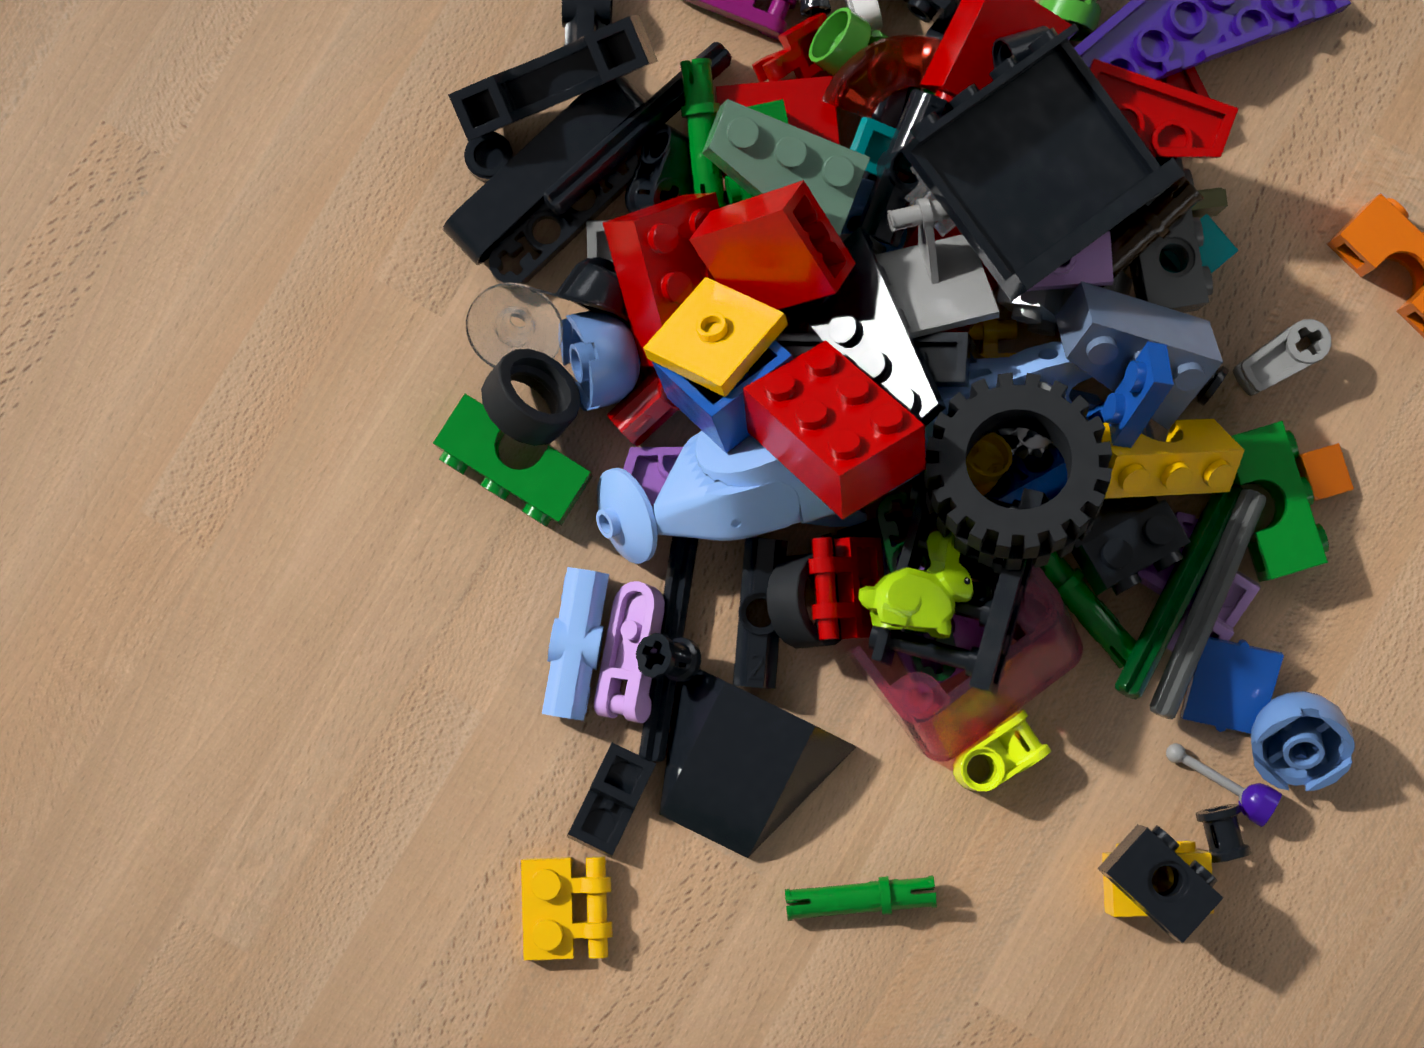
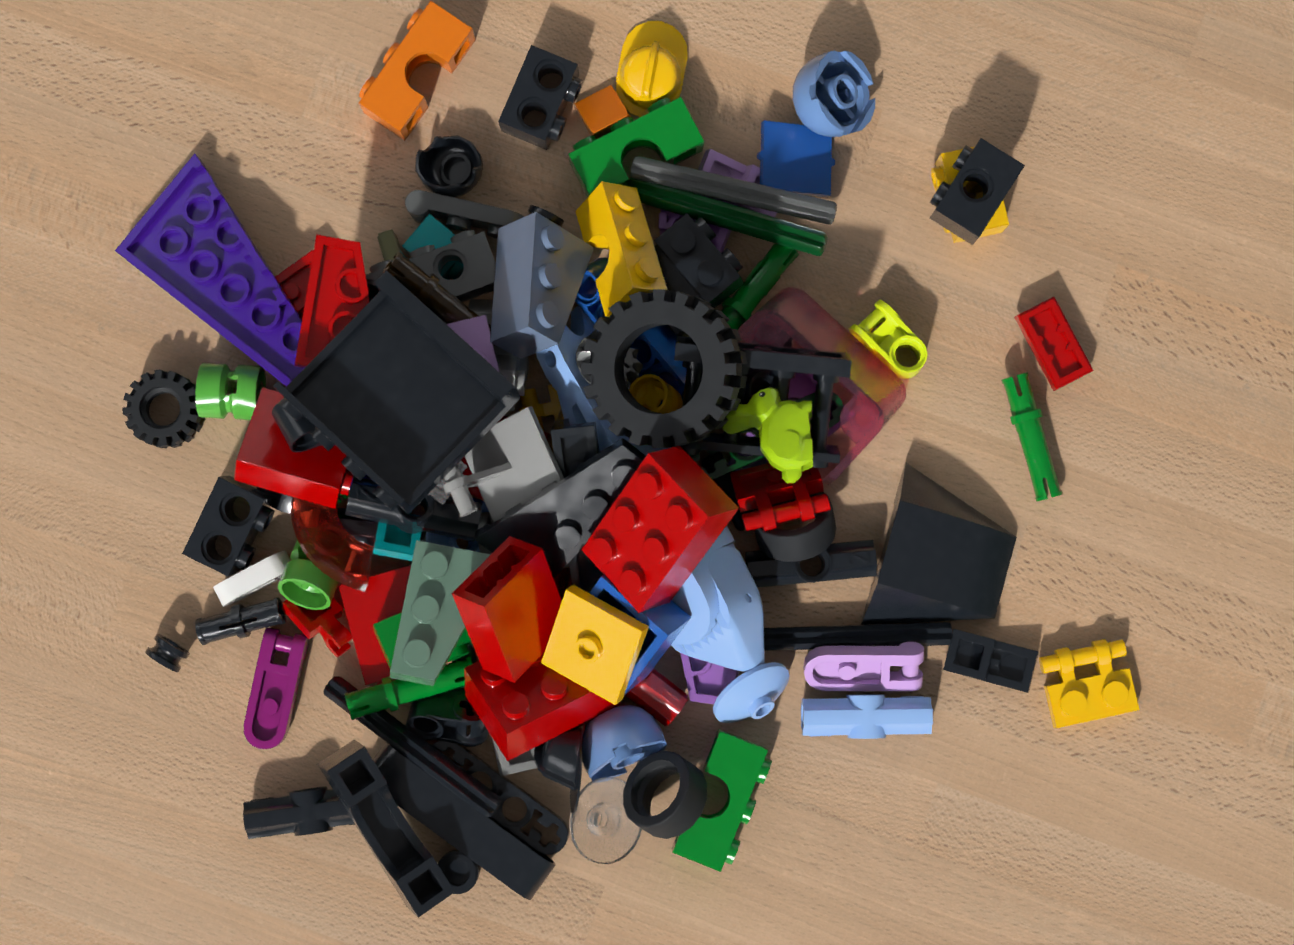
camera: 95 degrees left, 0 degrees up
(672, 651) = (859, 629): black bush -> none
(964, 945) = (1053, 343): none -> red plate
(1138, 394) = (579, 277): blue plate -> none
(1223, 832) = (919, 146): black bush -> none
(1233, 286) = (458, 212): none -> dark grey plate
(1255, 801) = (887, 123): hinge -> none
(1281, 358) = (514, 165): light grey piece -> none
(1289, 285) = (449, 166): none -> black hair
(1356, 390) = (531, 95): none -> black brick
(1368, 540) = (651, 66): none -> yellow piece

